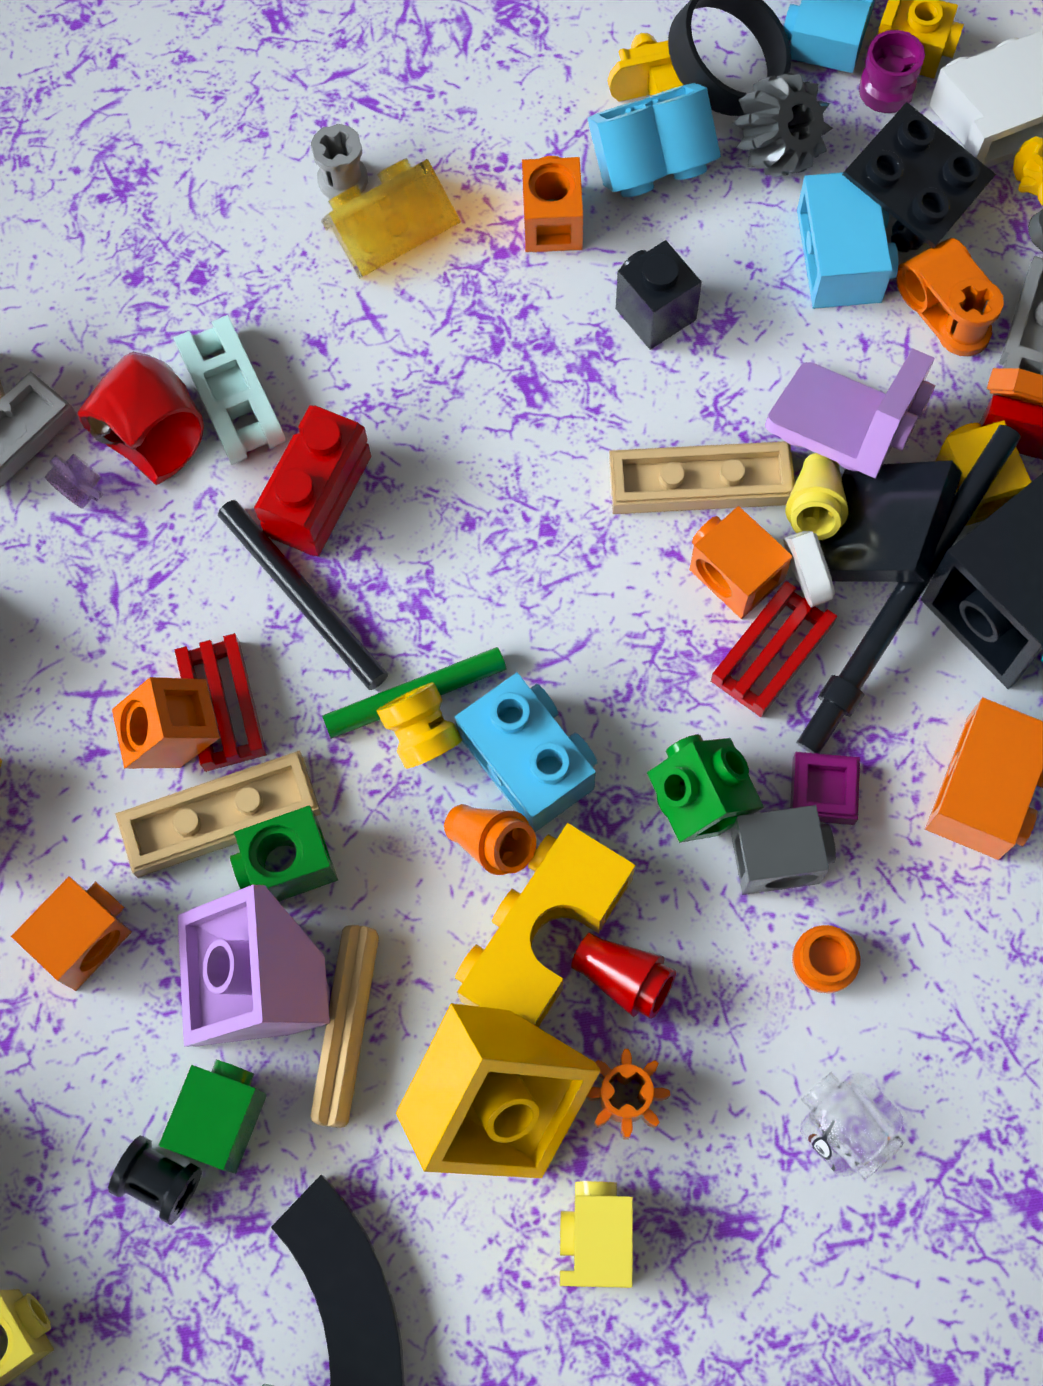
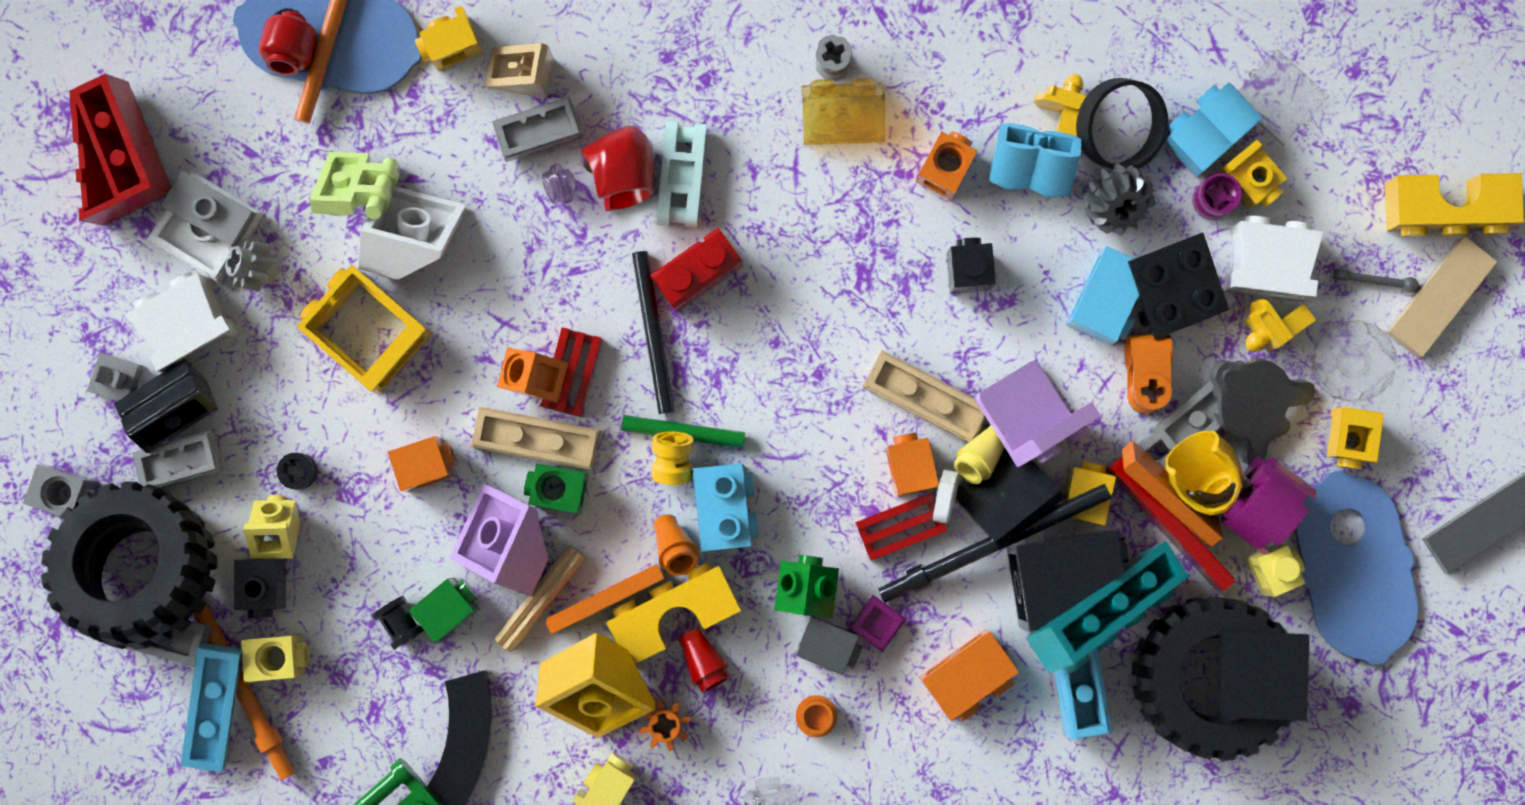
camera: 30 degrees right, 15 degrees up
(436, 967) = (605, 598): none -> orange tile

